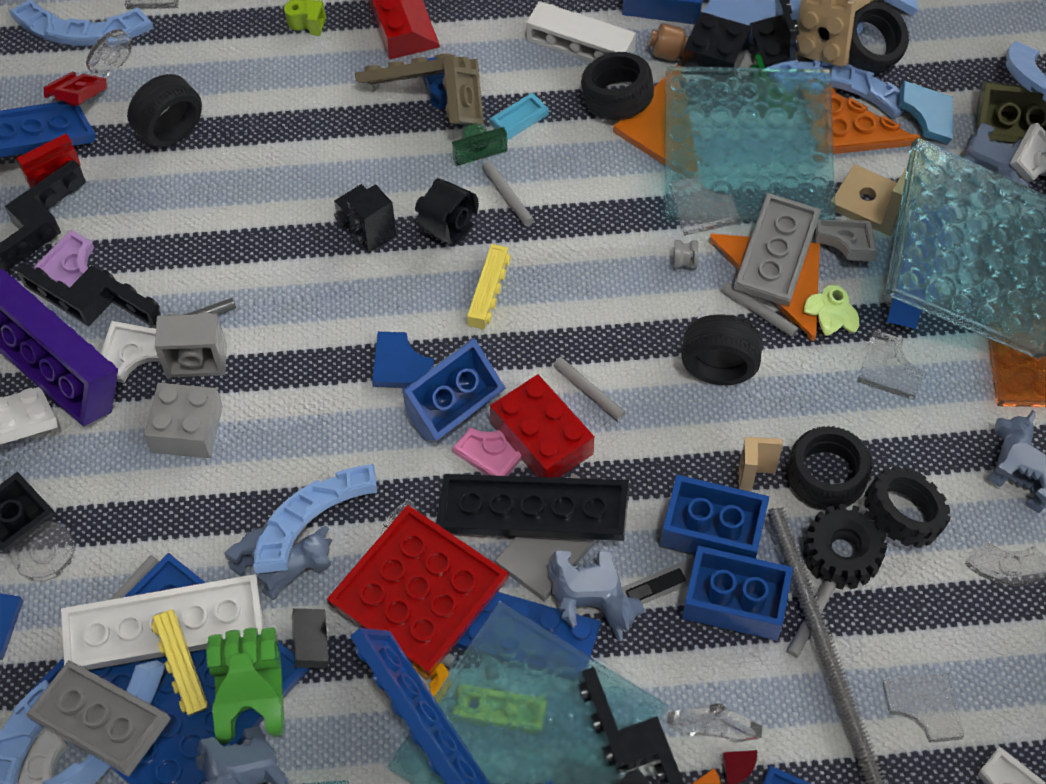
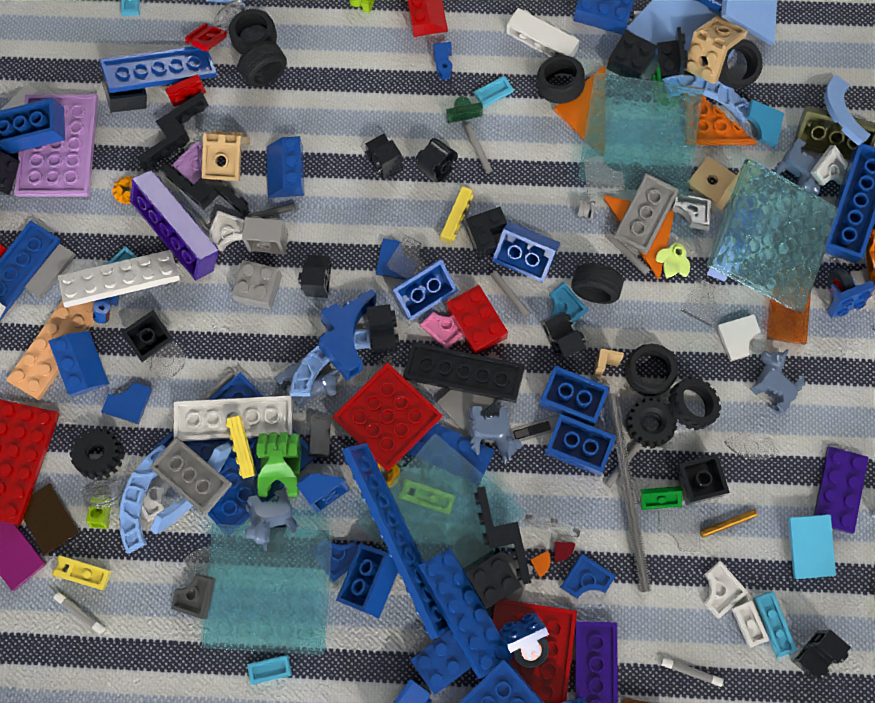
camera: 10 degrees right, 15 degrees up
(114, 221) = (225, 145): none -> tan bracket
(137, 58) = (248, 18): none -> black tyre
(213, 251) = (285, 168): none -> blue slope
(277, 397) = (316, 276): none -> black brick
(324, 475) = (341, 324): none -> blue arch
(324, 711) = (321, 489): none -> blue slope
(392, 456) = (382, 324): none -> black brick
(416, 351) = (406, 258): none -> clear tile
(460, 82) = (456, 69): dark tan bracket -> none
(532, 301) = (482, 228): none -> black brick
(603, 324) = (525, 251): none -> blue slope
(668, 42) = (600, 48): medium nougat head -> none
(678, 431) = (561, 335): none -> black brick
(679, 399) = (566, 301): none -> dark azure tile
(883, 659) = (661, 498): none -> green plate
(943, 620) = (701, 479): none -> black brick
(952, 405) = (737, 336): none -> white tile
(1000, 686) = (728, 523): none -> pearl gold bar

